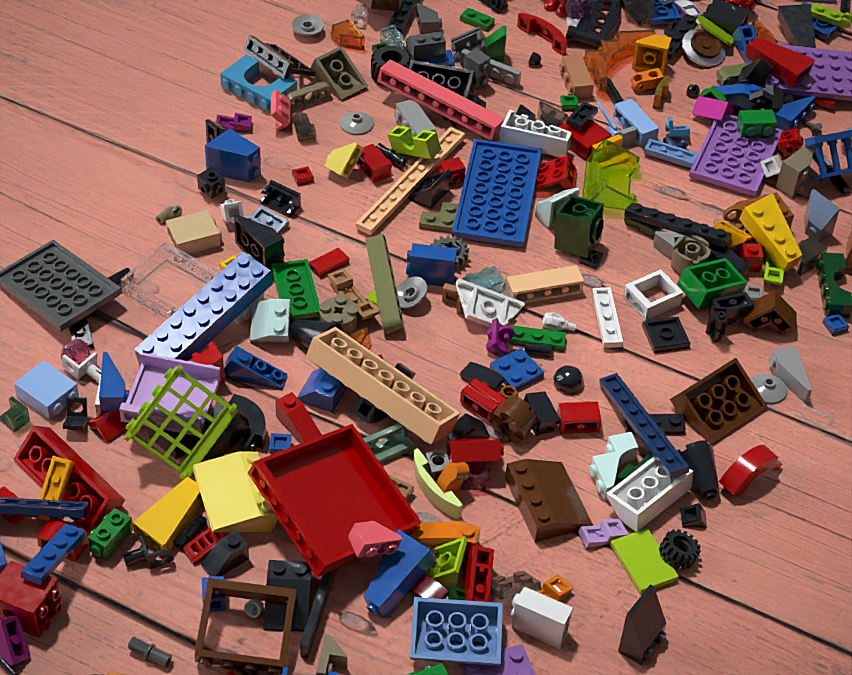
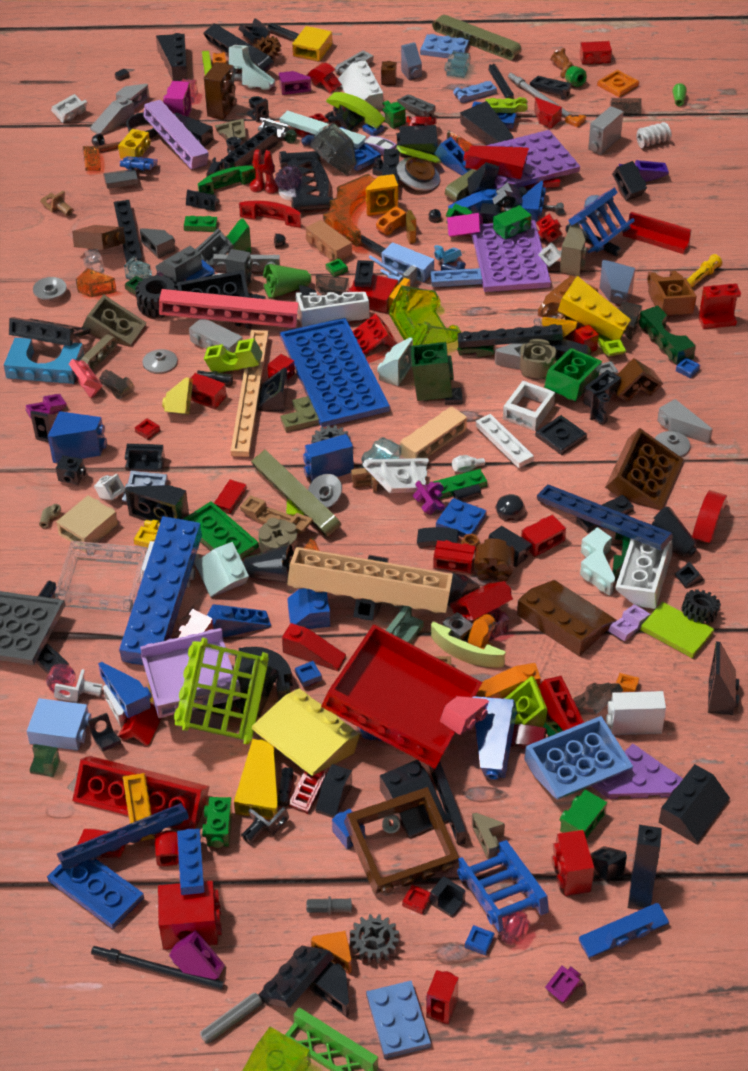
camera: 25 degrees left, 0 degrees up
(511, 94) = (284, 279): none -> bright green cone

